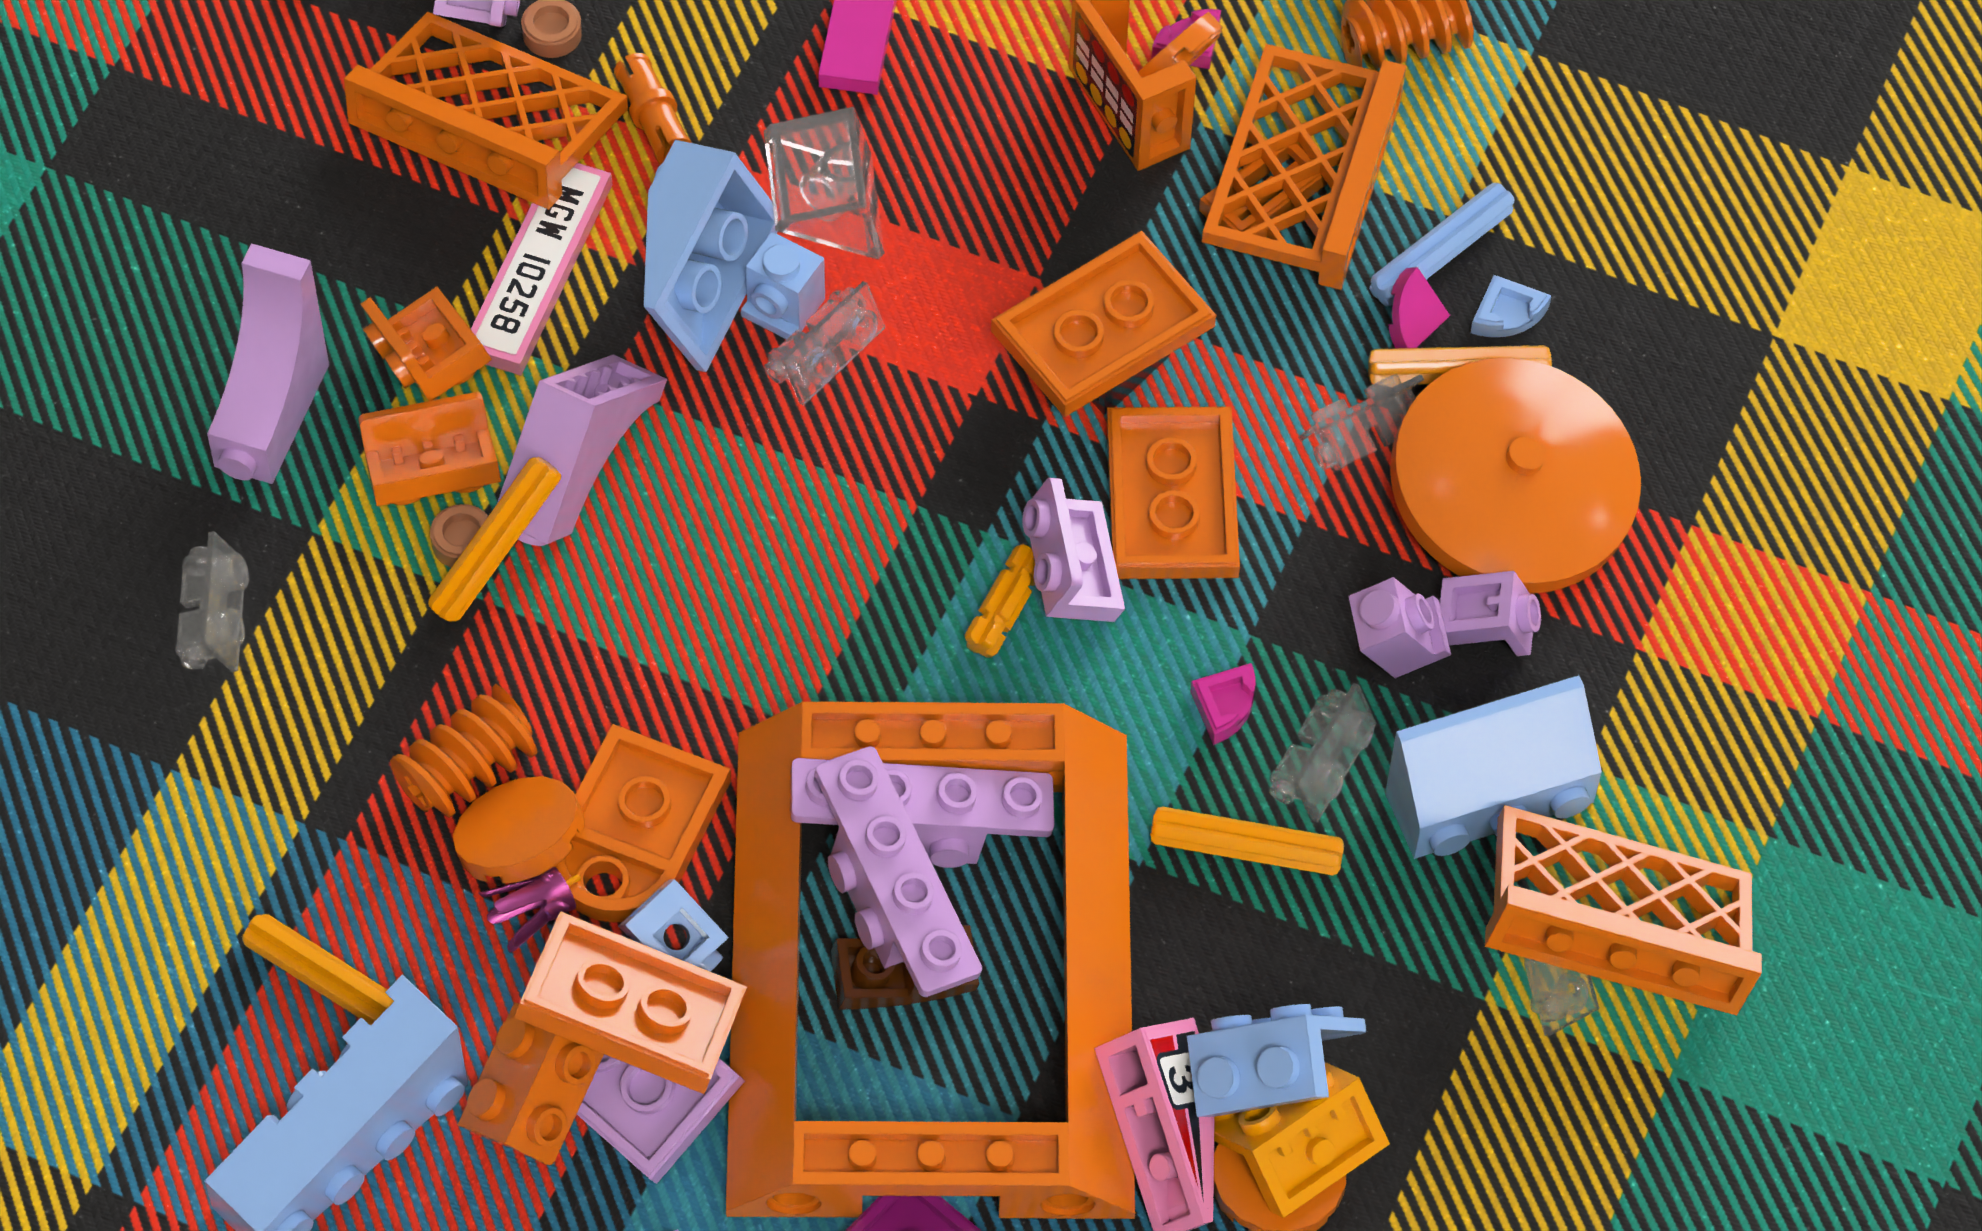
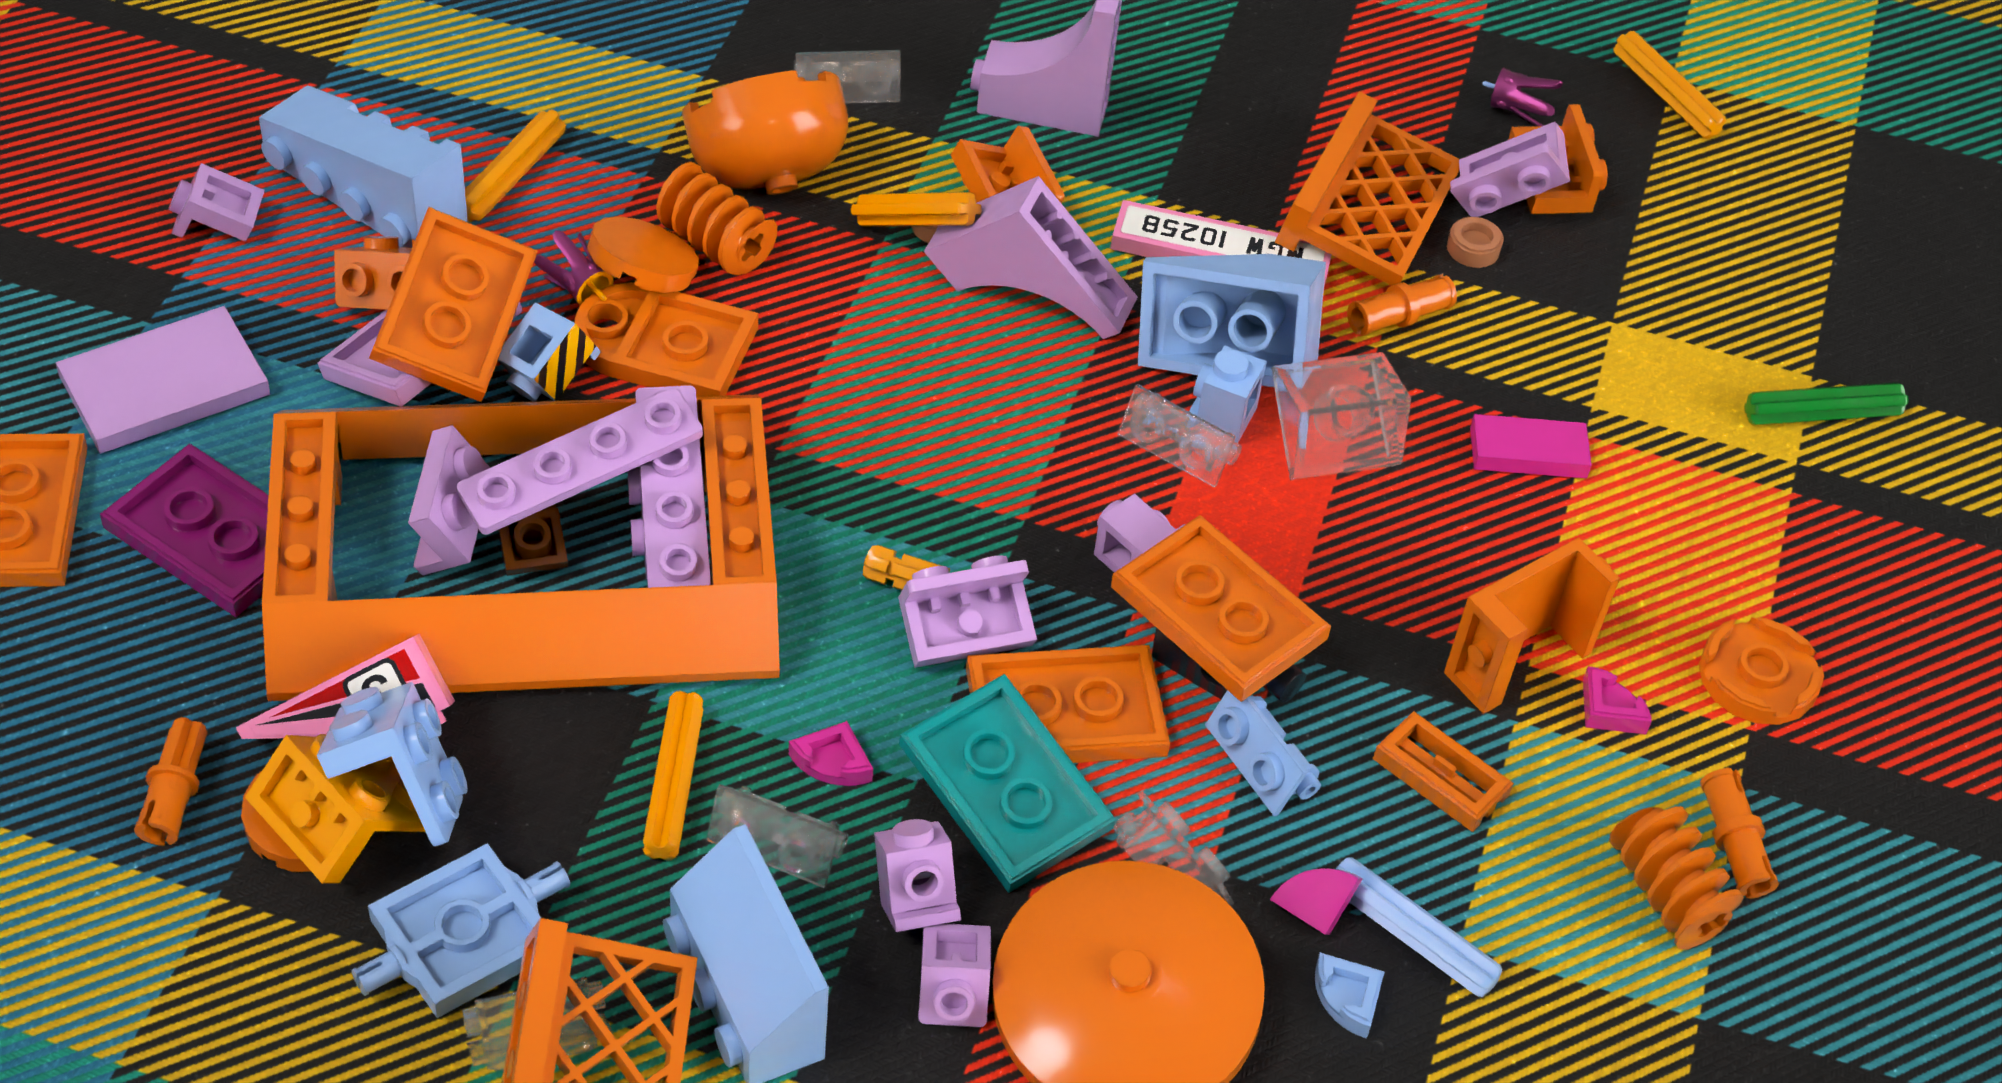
camera: 80 degrees right, 10 degrees down
(354, 677) = (768, 130): none -> orange cylinder
(426, 344) = (1106, 160): orange bracket -> none
(902, 1035) = (437, 509): none -> lavender bracket
(982, 395) = (1128, 531): none -> lavender brick
(1187, 45) = (1560, 656): orange tile -> none
(1247, 332) = (1259, 752): none -> light blue hinge
(1276, 547) = (1006, 782): none -> teal tile
(1350, 186) = (1475, 833): orange fence -> none
(1434, 1027) = (458, 929): none -> light blue plate
(1437, 361) = (1256, 909): light orange axle -> none

